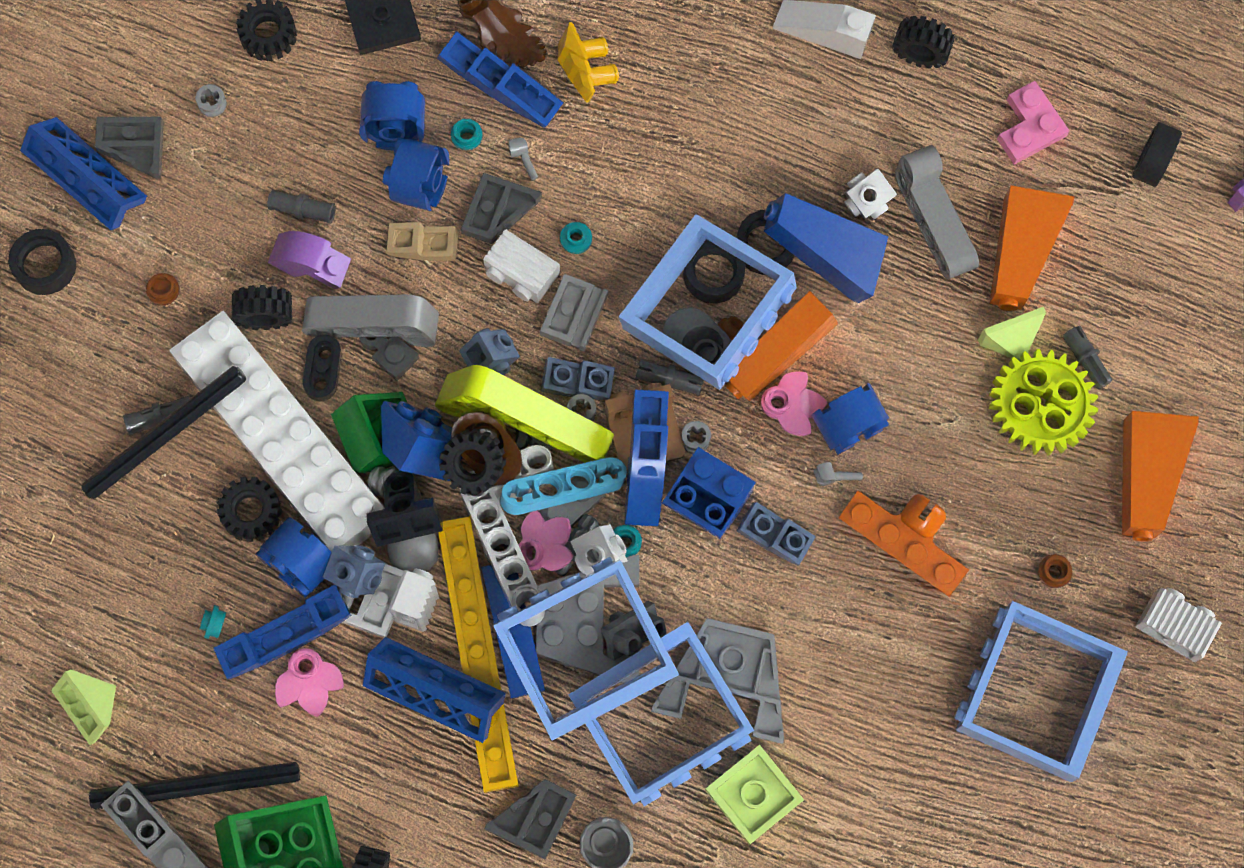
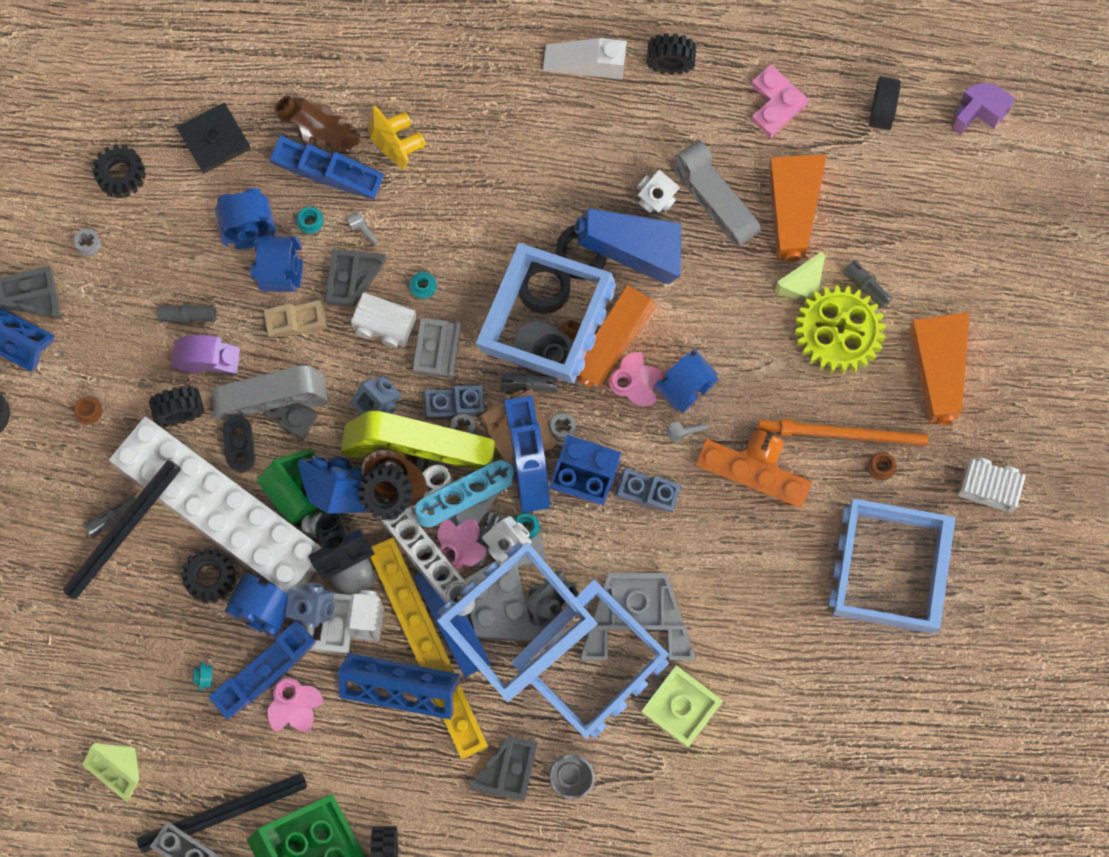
camera: 10 degrees left, 0 degrees up
(955, 499) = (787, 428): none -> orange bar

